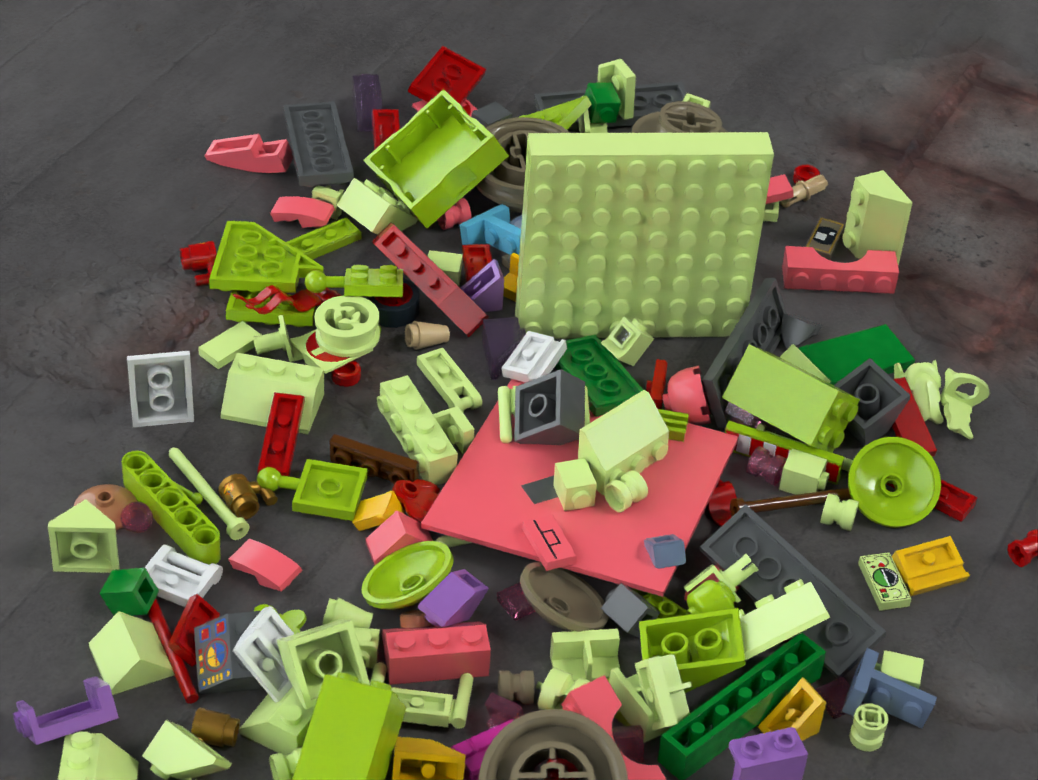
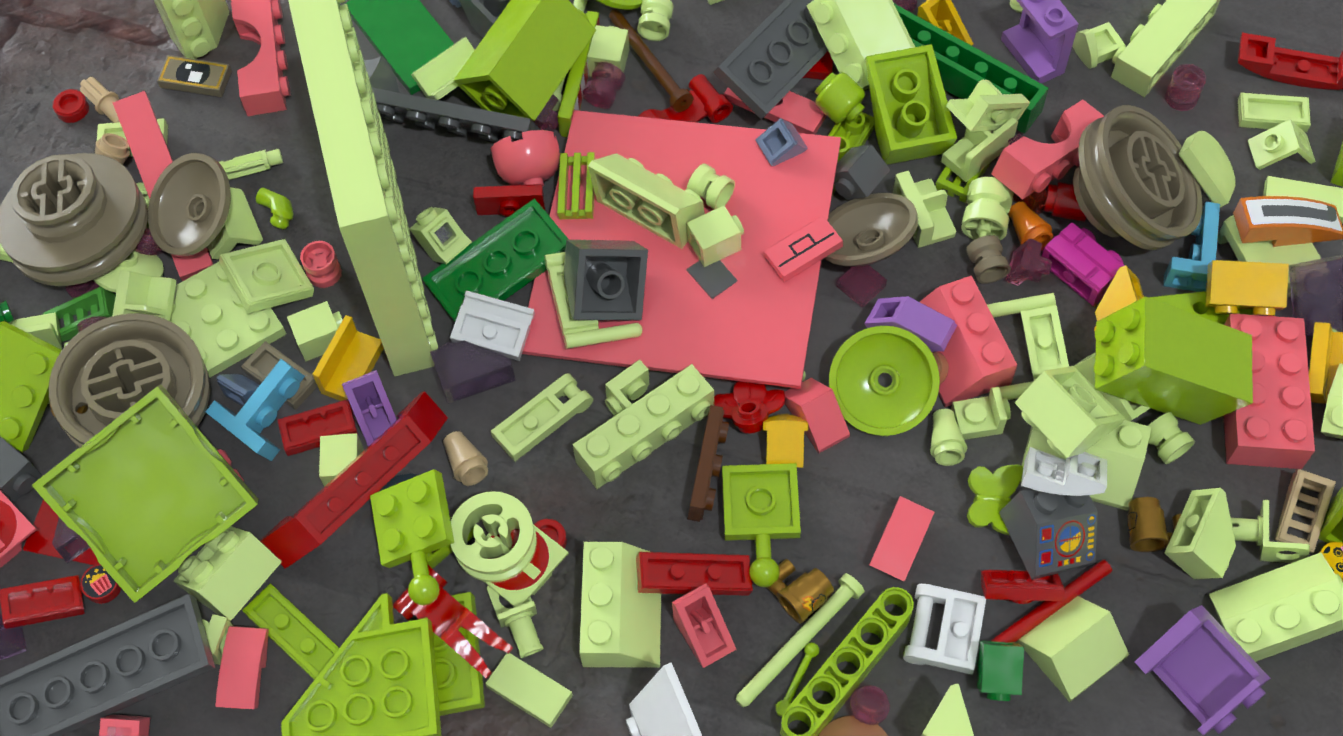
camera: 95 degrees left, 20 degrees up
(239, 434) = (702, 625): none -> coral slope
(731, 576) = (805, 93): yellowish green bracket -> none

